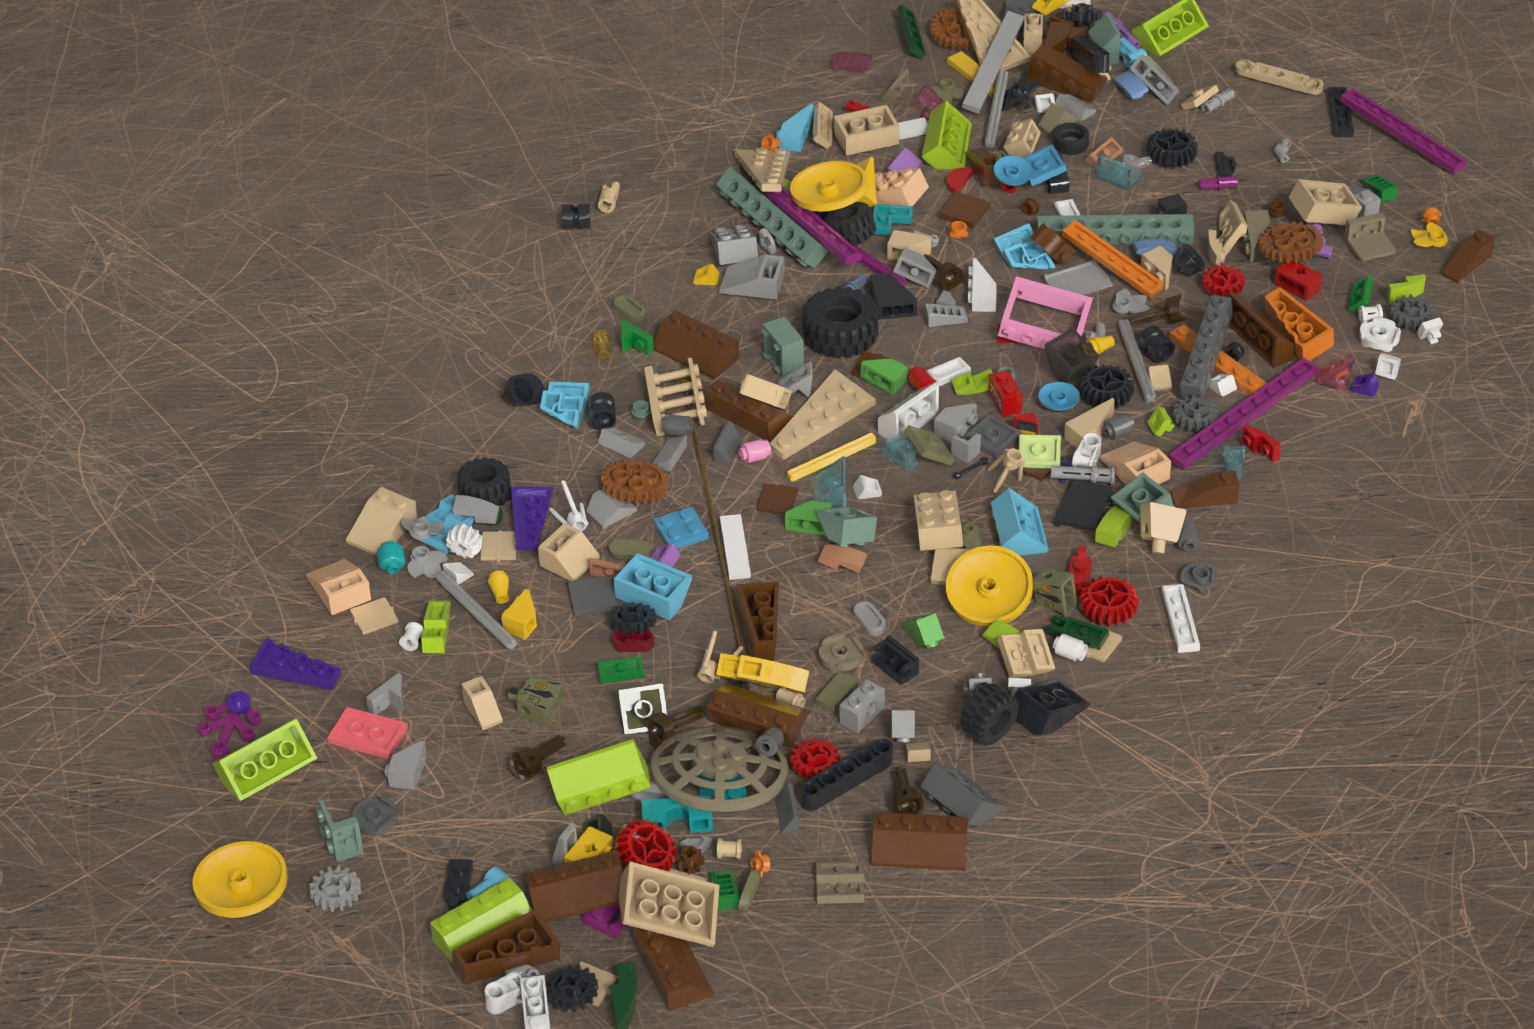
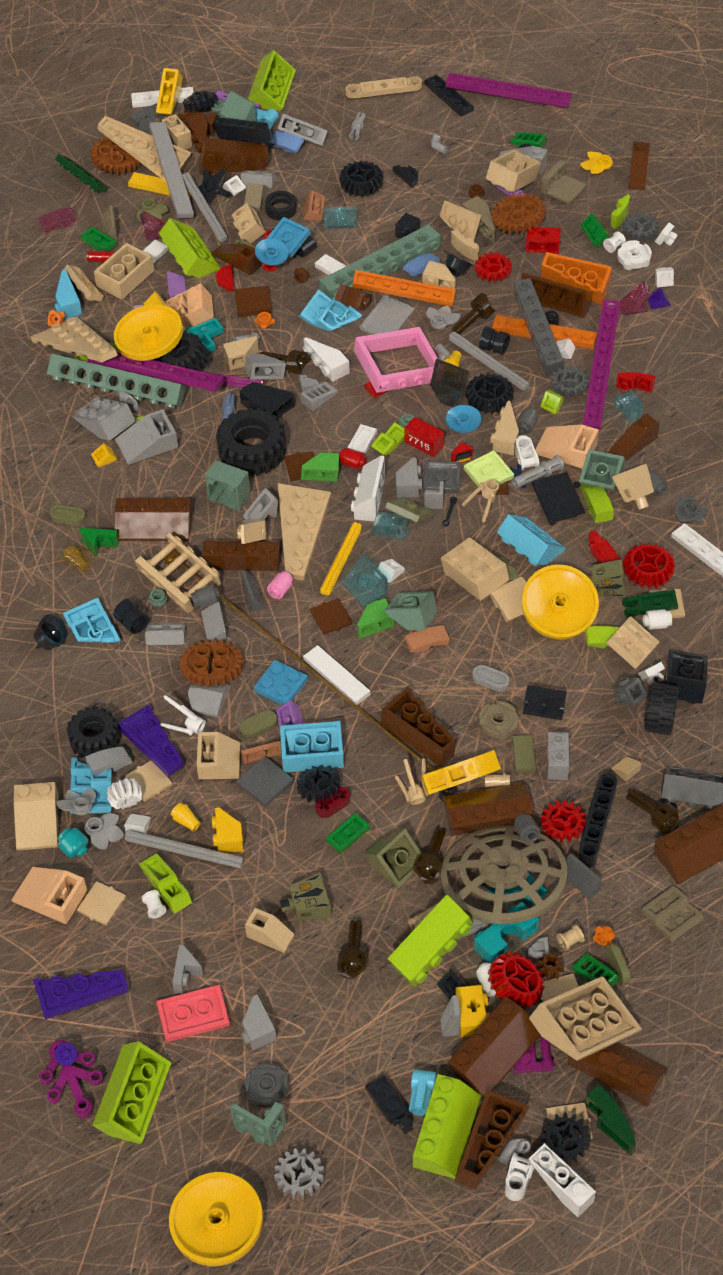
camera: 35 degrees left, 10 degrees up
(871, 94) = (98, 240): none -> green plate
(903, 724) = (599, 751): light grey slope -> none
(924, 630) = (542, 664): slope -> none
(1137, 162) = (343, 202): clear arm -> none
(1160, 377) = (518, 365): tan slope -> none
(1199, 96) = (343, 129): tan plate -> none
(1218, 182) = (417, 190): magenta axle -> none
(1431, 215) = (586, 146): orange plate -> none

